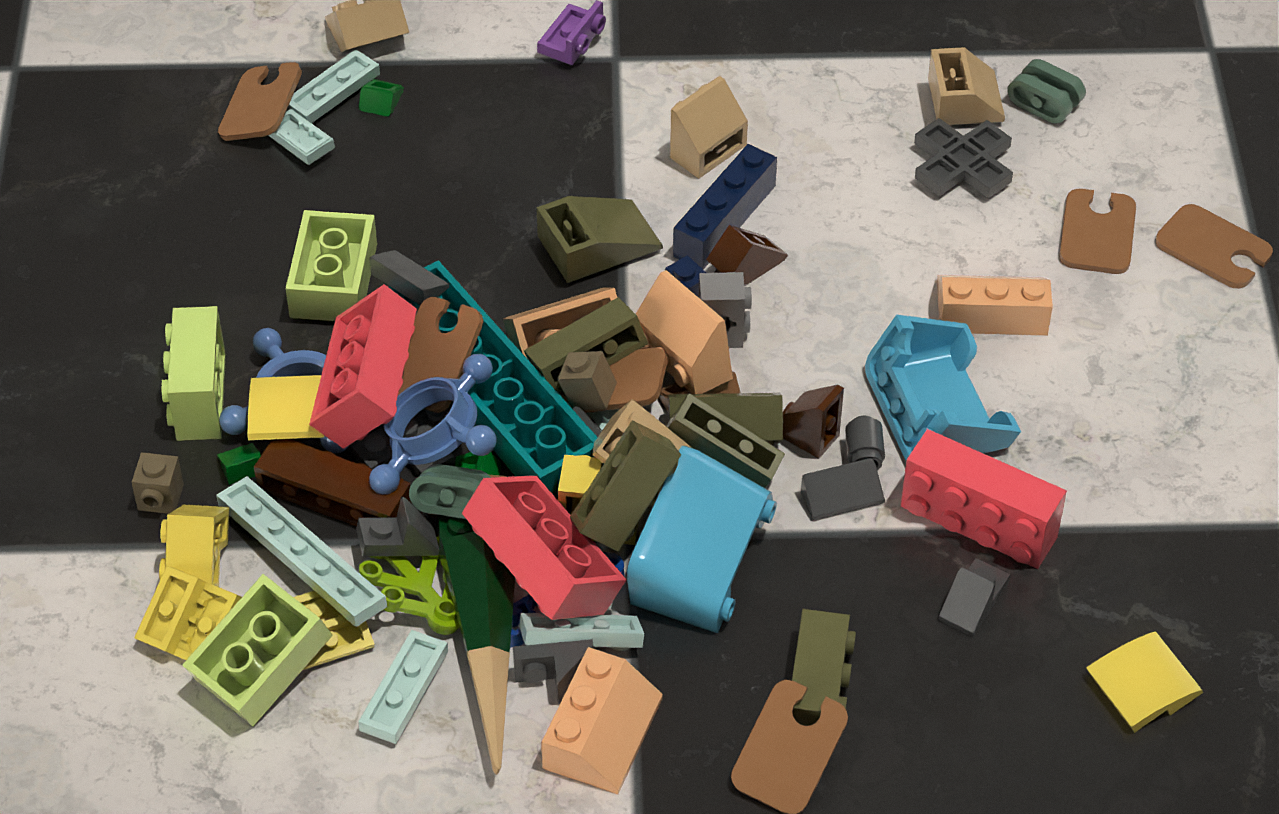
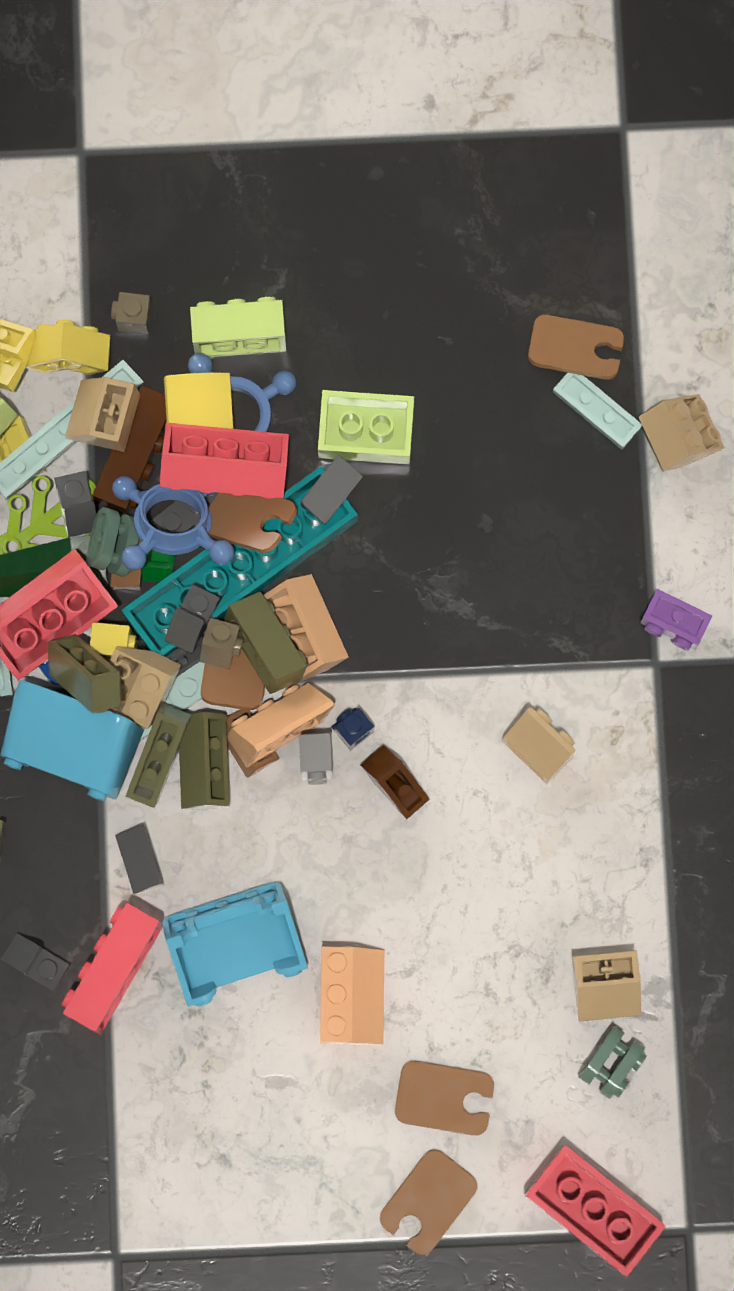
camera: 90 degrees right, 30 degrees up
(239, 462) = (162, 368): green slope -> none
(287, 488) = (103, 413): none -> tan slope
(302, 138) = (531, 388): light aqua plate -> none
(380, 97) = (594, 453): green slope -> none
(557, 403) = (191, 619): none -> dark grey slope
(593, 234) = (415, 651): olive slope -> none
(725, 203) = (450, 762): dark blue brick -> none
(814, 419) = (203, 832): reddish brown slope -> none
(865, 440) = (185, 878): dark grey brick -> none
(963, 158) = (524, 979): dark grey plate -> none
(1206, 101) = (595, 1210): none -> coral brick

